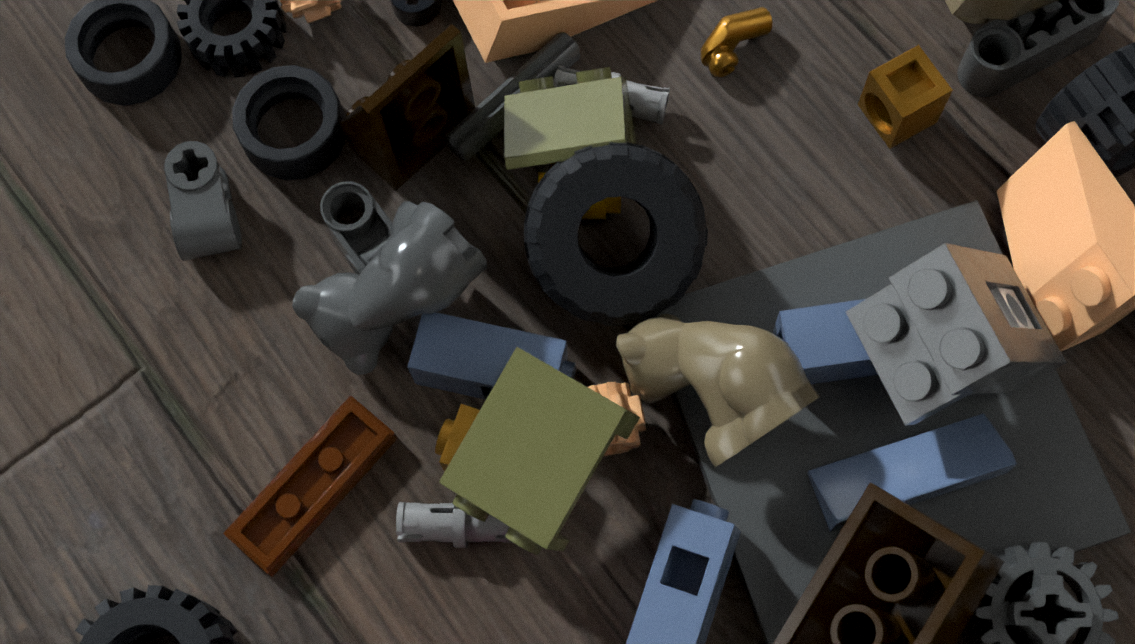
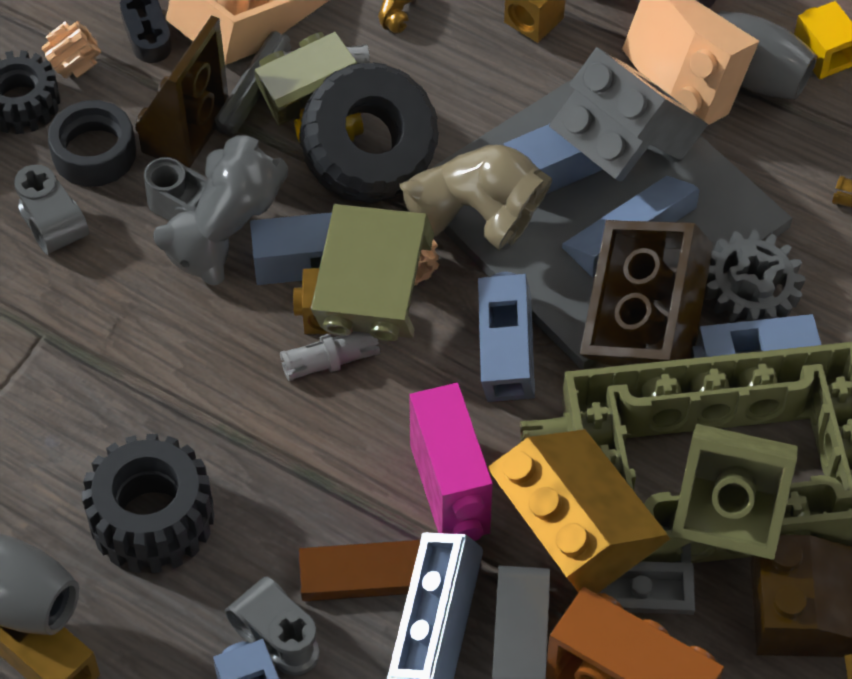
camera: 25 degrees left, 15 degrees down
(310, 486) = (207, 367): reddish brown tile -> none

